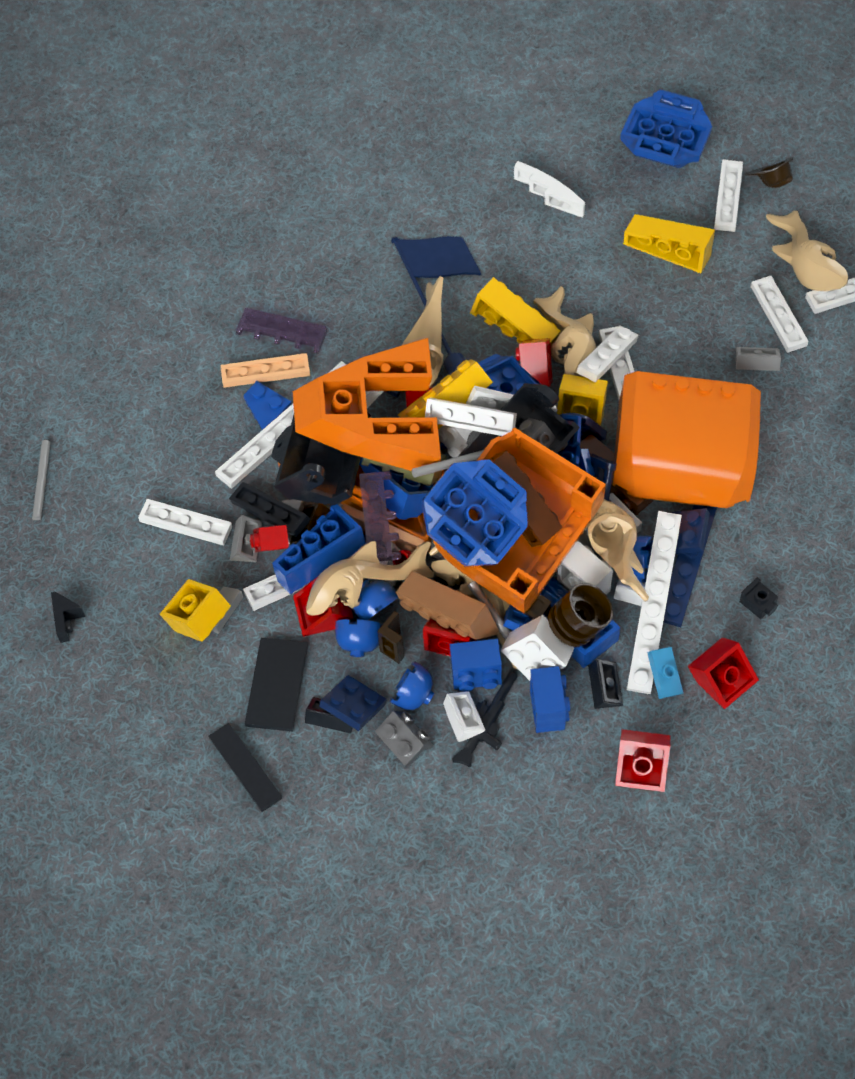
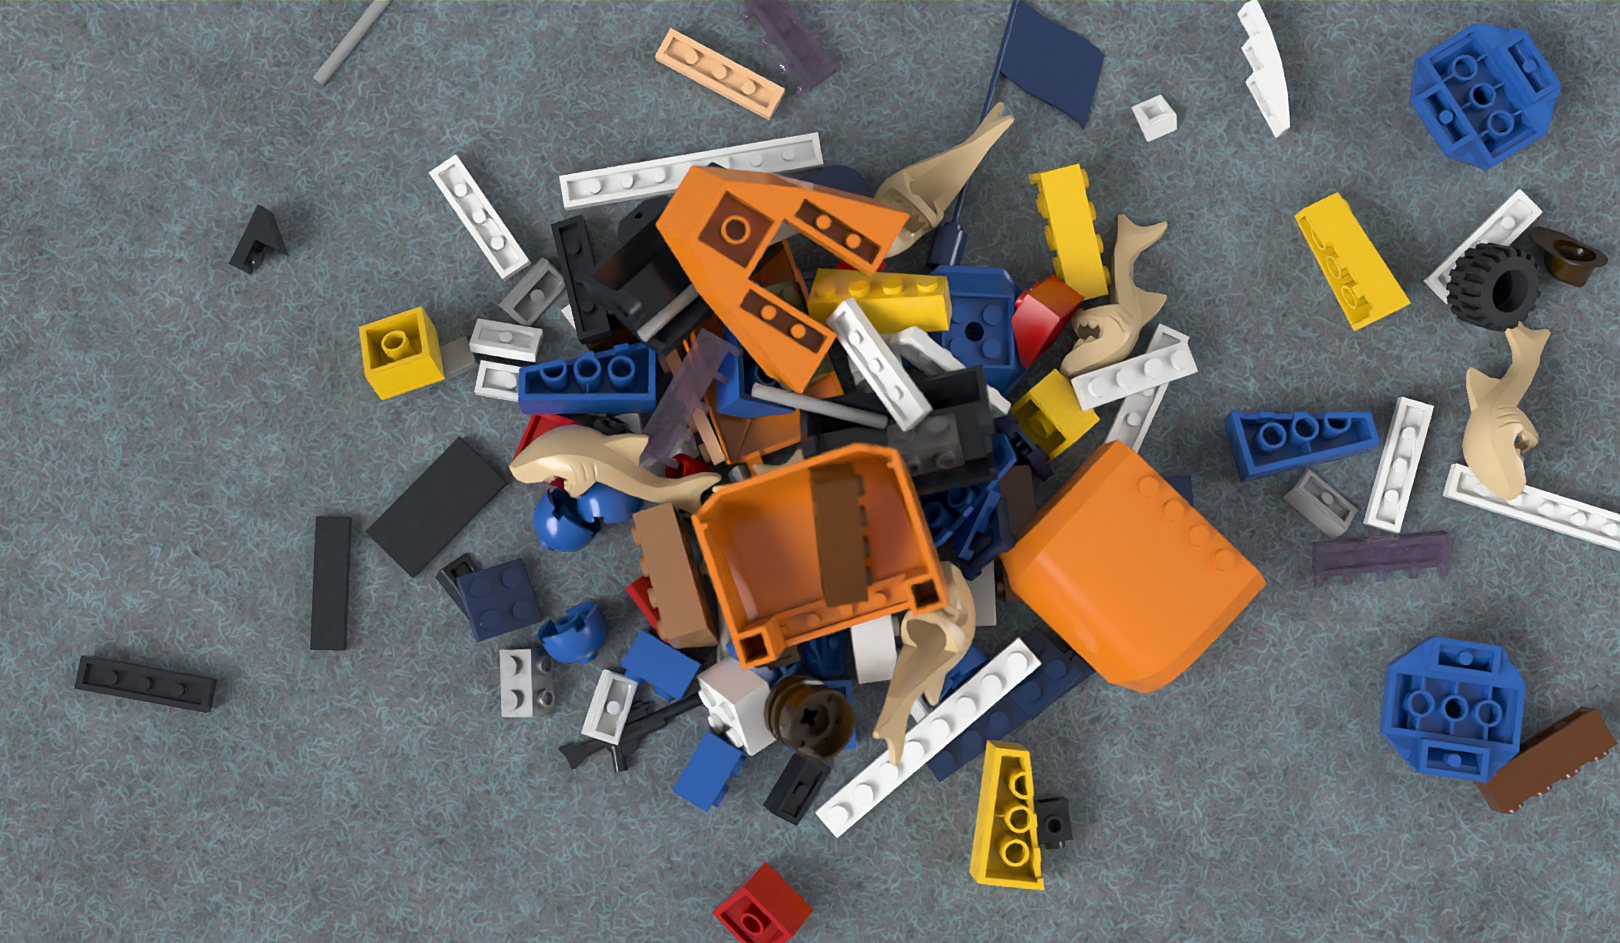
camera: 30 degrees right, 25 degrees up
(172, 899) = (145, 683): none -> black plate
(249, 570) = (506, 340): none -> white plate
(265, 403) = (686, 123): blue wing -> none
(269, 538) = (545, 326): red slope -> none
(335, 475) = (668, 313): none -> light grey bar
(390, 640) = (587, 559): dark brown panel -> none
(495, 499) = (745, 564): blue piece -> none
(514, 246) = (1155, 117): none -> white slope
(665, 672) = (869, 831): dark azure plate -> none
(716, 336) = (1286, 442): none -> blue wedge
(724, 671) = (936, 877): red slope -> none
(734, 609) = (1006, 823): none -> yellow wedge
(749, 203) = (1514, 289): none -> black tyre
(809, 358) = (1380, 555): none -> clear purple hinge

